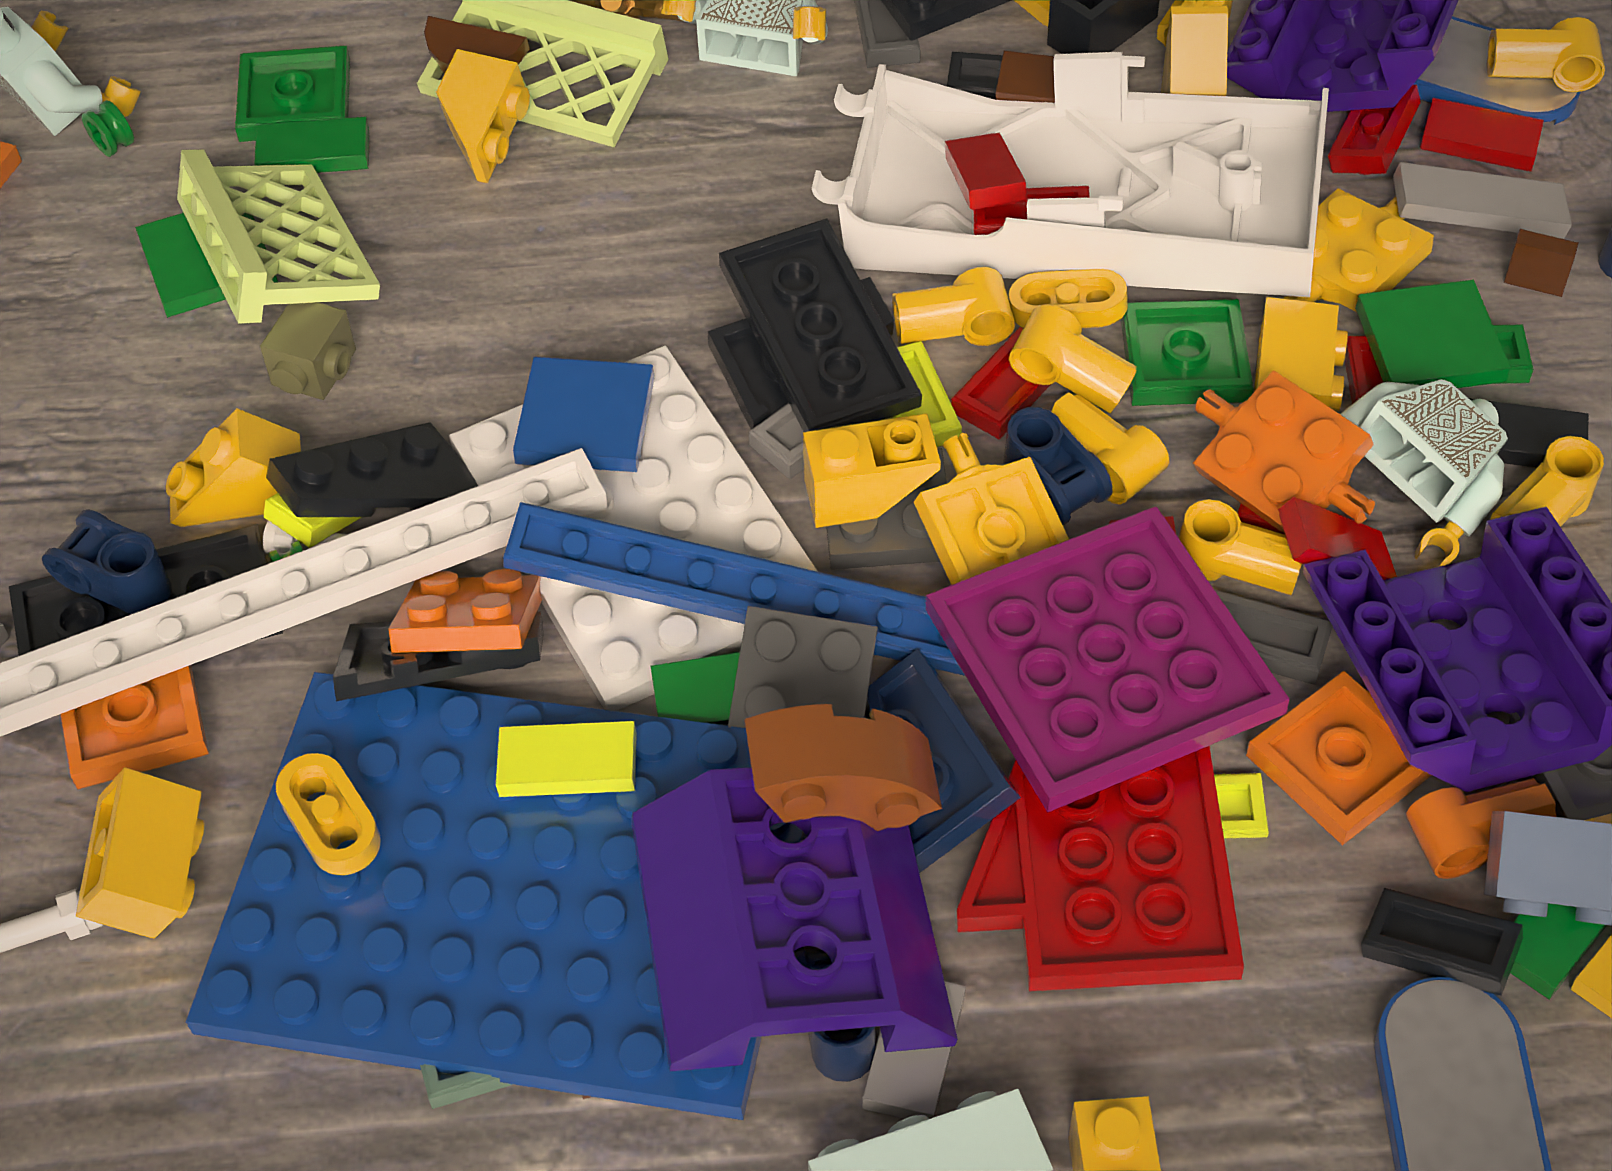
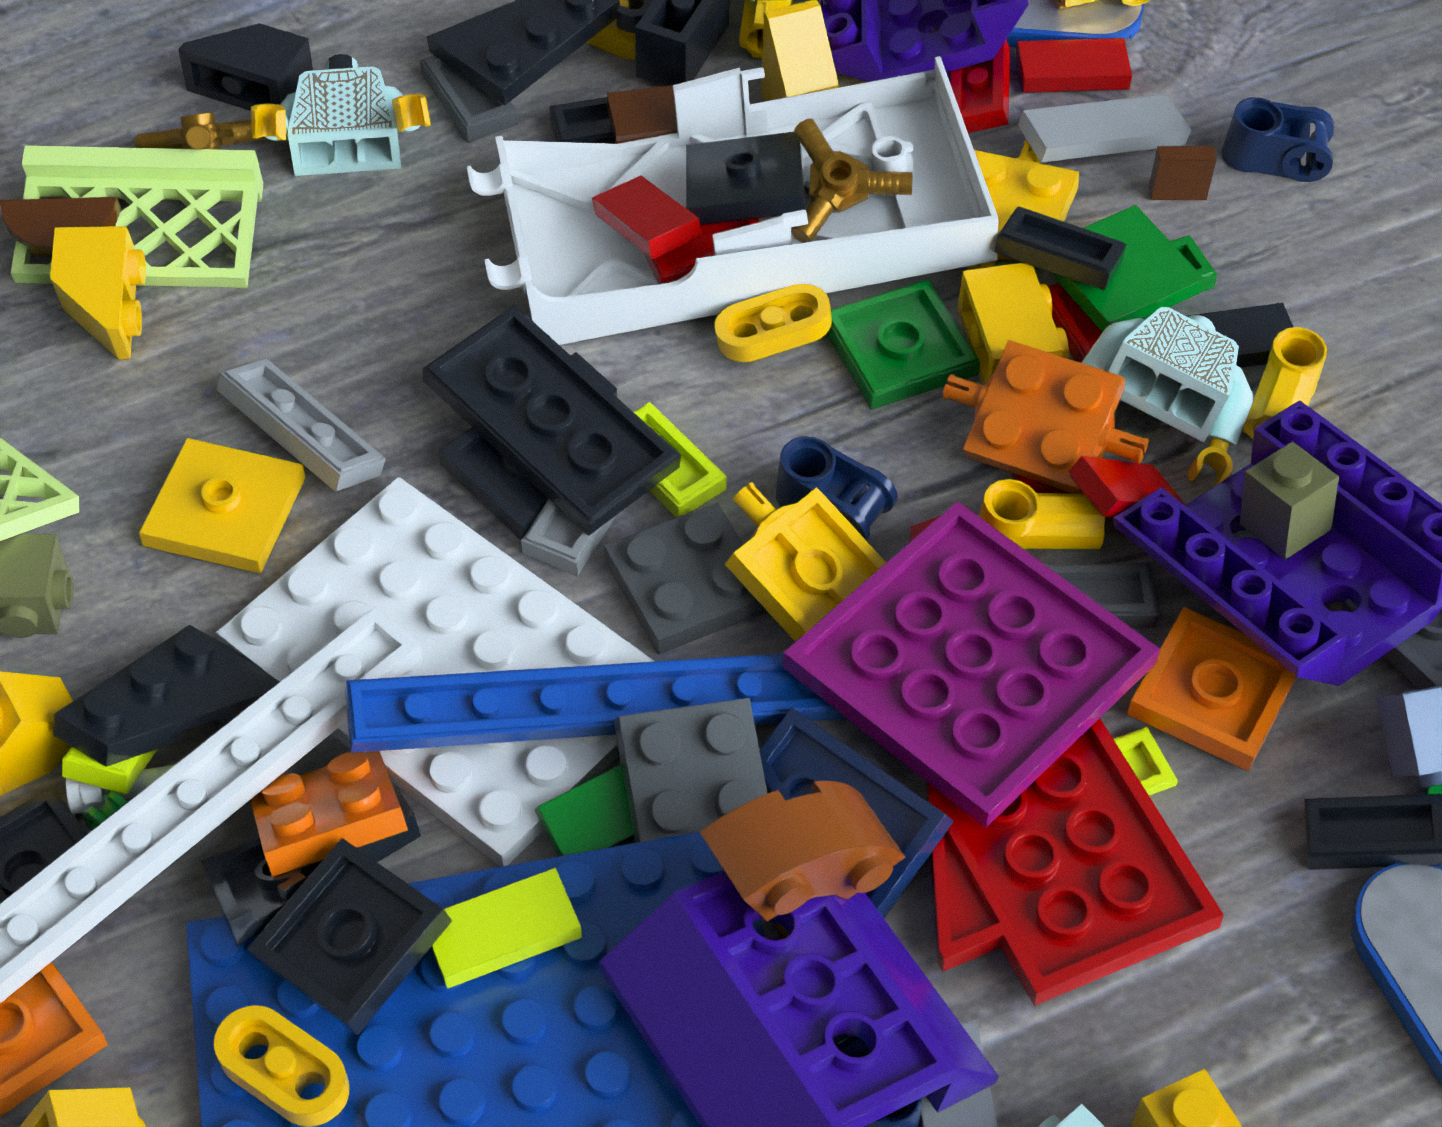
camera: 25 degrees left, 0 degrees up
(429, 722) = (350, 935): none -> black plate
(505, 325) = (223, 505): none -> yellow plate
(585, 407) = (352, 564): blue tile -> none
(602, 277) = (301, 424): none -> light grey tile
(866, 467) = (669, 543): yellow slope -> none
(970, 307) = (681, 356): yellow piece -> none
(996, 393) = (749, 419): red tile -> none
(1056, 351) = (790, 378): yellow piece -> none
(1092, 157) = (745, 178): none -> black plate
(1129, 455) = (900, 455): yellow piece -> none
(1179, 183) = (839, 181): none -> pearl gold piece
(1373, 300) = (1060, 248): none -> black tile
(1457, 827) = (1347, 721): orange piece -> none
(1485, 597) = (1288, 500): none -> olive brick

